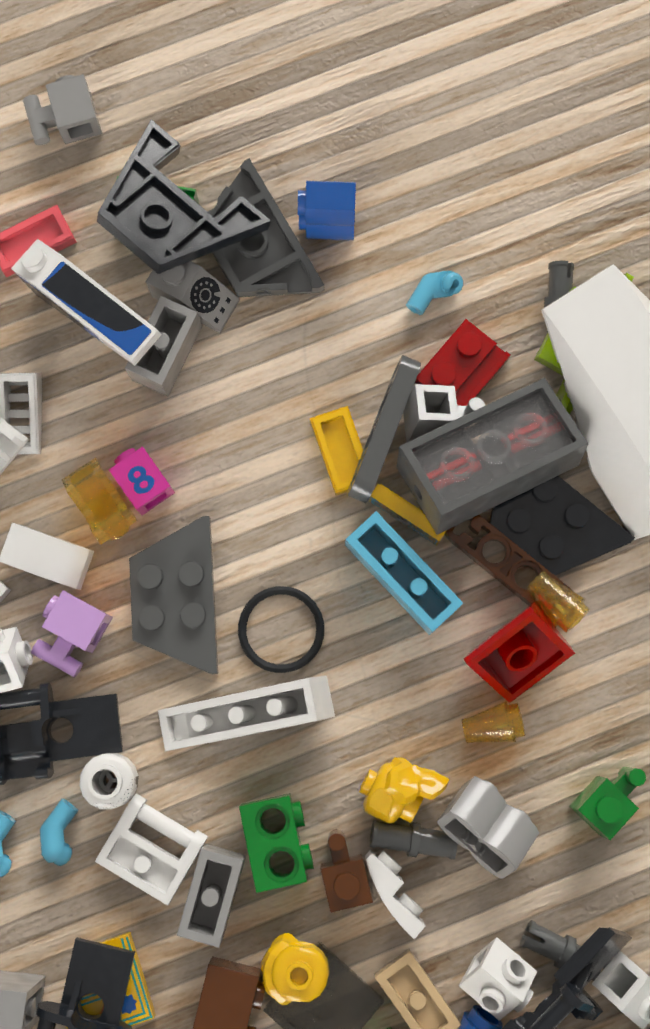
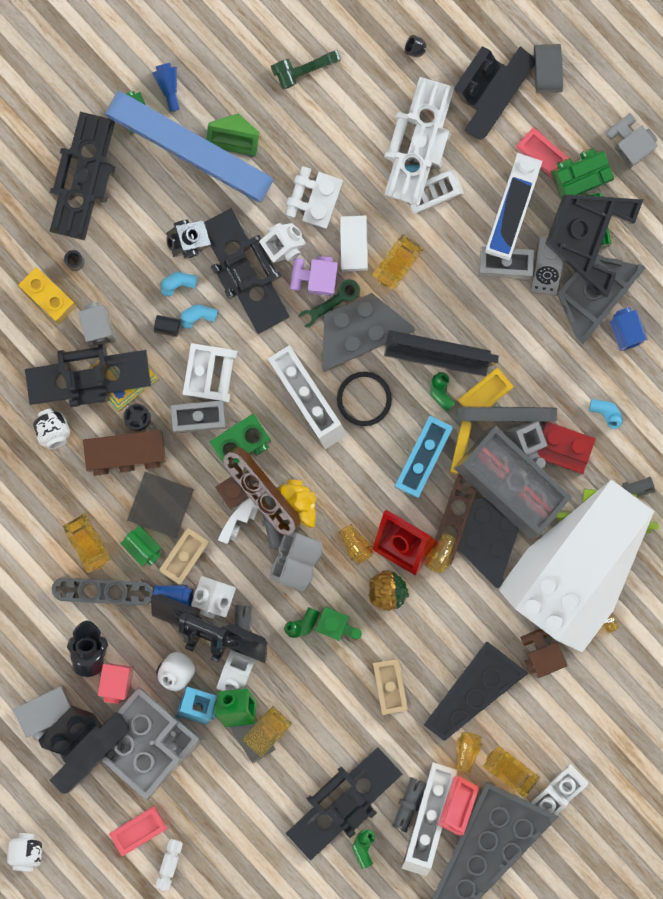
camera: 70 degrees right, 5 degrees up
(53, 888) = (166, 325): none -> black hinge
(81, 191) = (582, 174): none -> green brick
(94, 784) = (232, 326): white head -> none
(118, 613) = (337, 299): none -> dark green brick
(140, 479) = (420, 281): dark pink brick -> none
(175, 999) = (135, 413): none -> black wheel
(258, 492) = (439, 353): none -> black fence
(294, 970) = (175, 479): yellow head -> none
(312, 515) = (439, 390): none -> green arm
(366, 848) = (265, 488): none -> reddish brown beam
(584, 703) = (387, 590): none -> pearl gold piece
(589, 853) = (302, 627): none -> green arm

